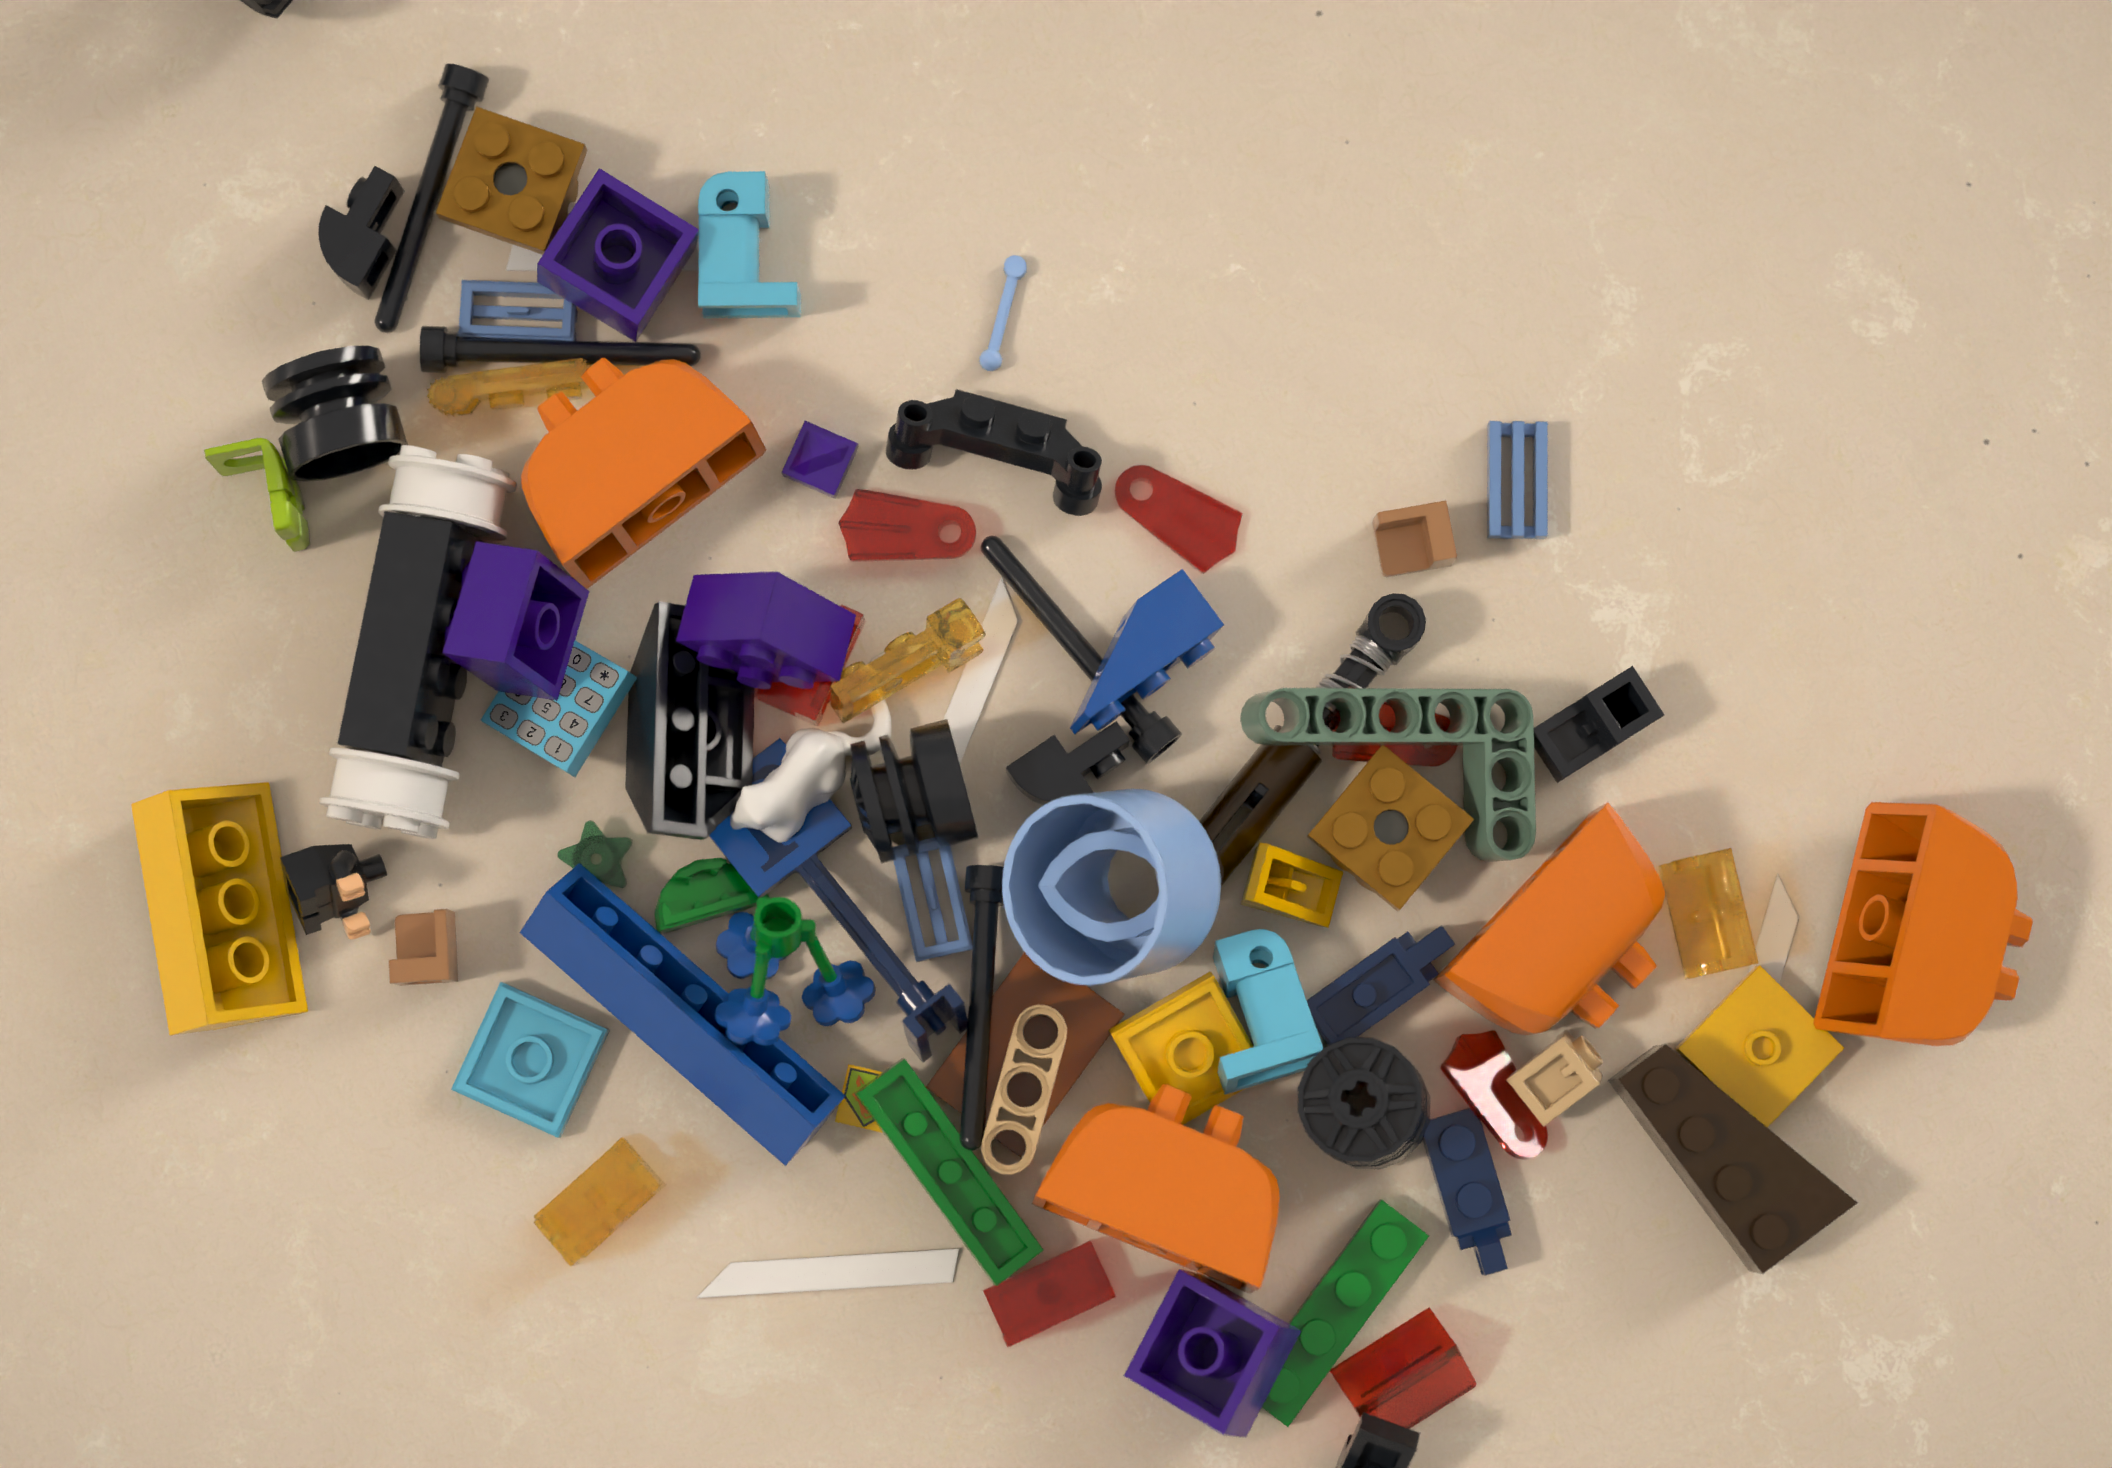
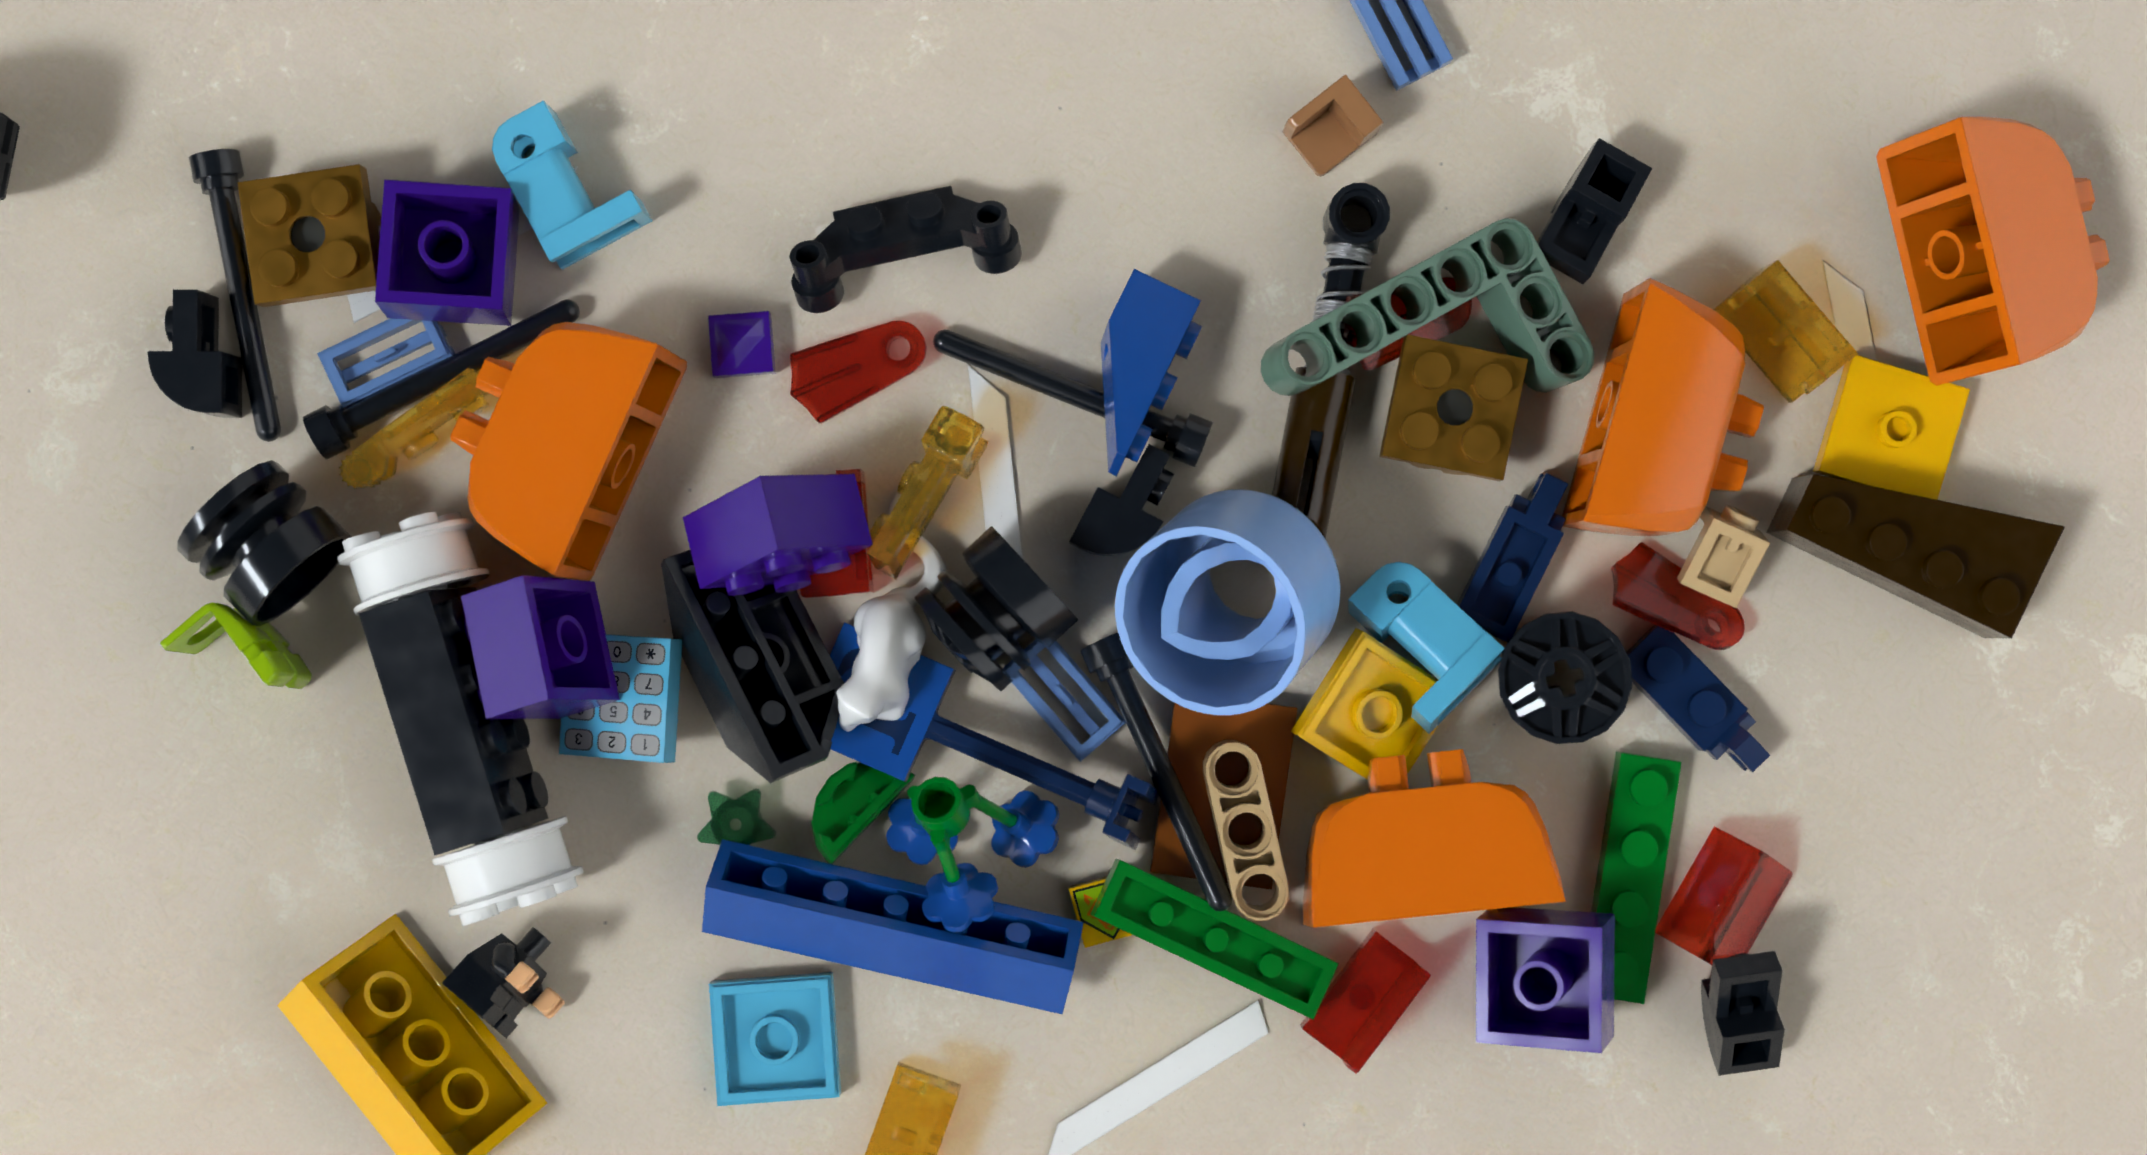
camera: 25 degrees left, 5 degrees up
(425, 949) = (623, 991): medium nougat panel -> none
(1014, 270) = (826, 71): light blue hinge -> none
(1181, 517) = (1104, 221): clear red piece -> none
(1291, 886) = (1386, 509): yellow slope -> none

